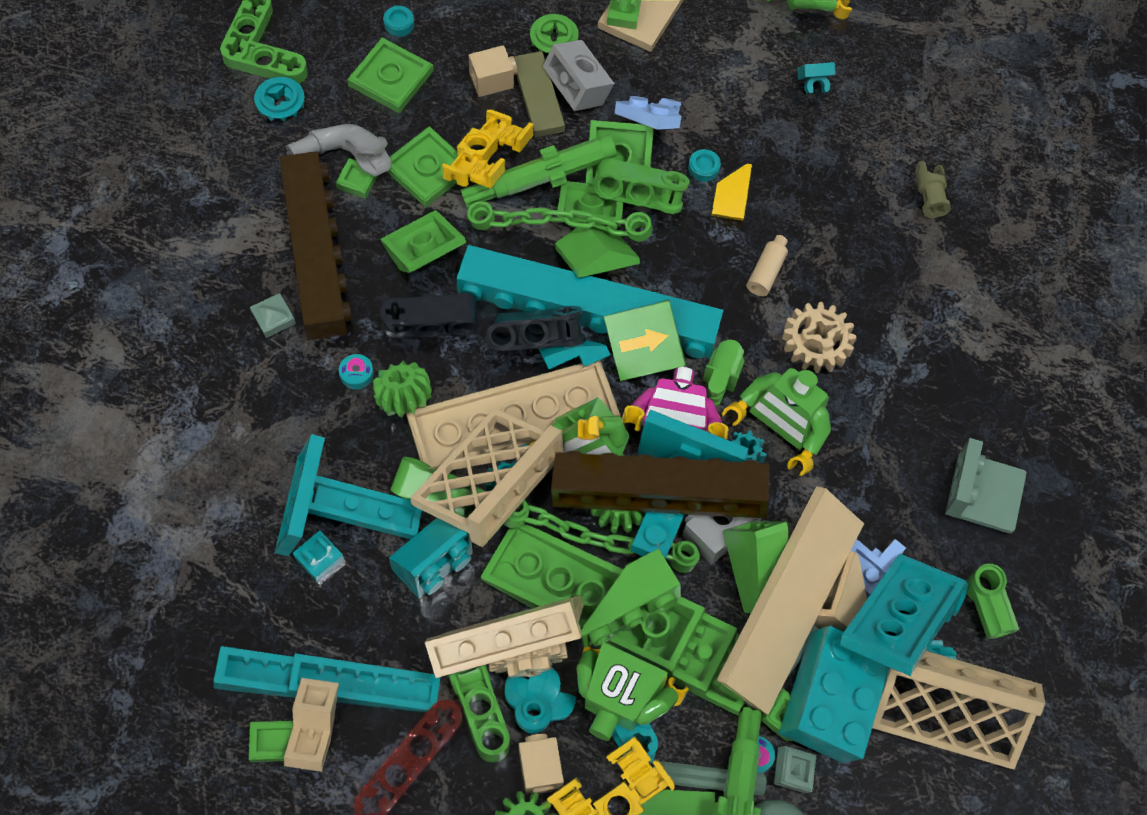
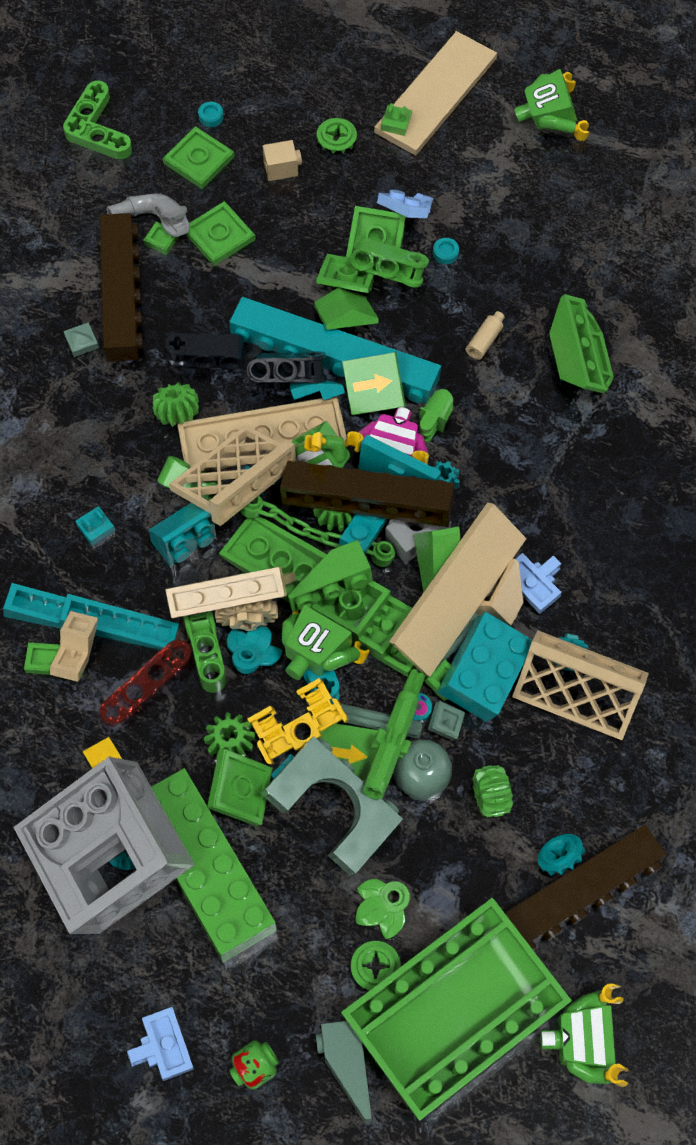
camera: 10 degrees right, 0 degrees up
(274, 89) = (103, 161): teal gear -> none
(339, 502) = (118, 486): teal piece -> none
(356, 371) = (141, 388): tile -> none
(422, 241) = (206, 291): bright green slope -> none
(474, 162) = (255, 233): yellow piece -> none
(538, 95) = (317, 182): olive tile -> none
(540, 764) = (246, 694): tan brick -> none
(551, 167) = (318, 241): bright green piece -> none
(578, 75) = (350, 169): light grey brick -> none
(634, 221) = (377, 289): bright green piece -> none
(732, 194) = (464, 275): yellow slope -> none
(790, 407) = (485, 447): bright green torso -> none
(816, 72) = (550, 182): teal tile -> none
(818, 338) = (514, 398): tan gear -> none
(884, 272) = (580, 346): none -> bright green wedge
(910, 587) = (566, 602): teal hinge -> none
(932, 188) = (632, 285): olive piece -> none
(985, 490) = (635, 526): sand green bracket -> none
(992, 604) = (625, 613): bright green piece -> none

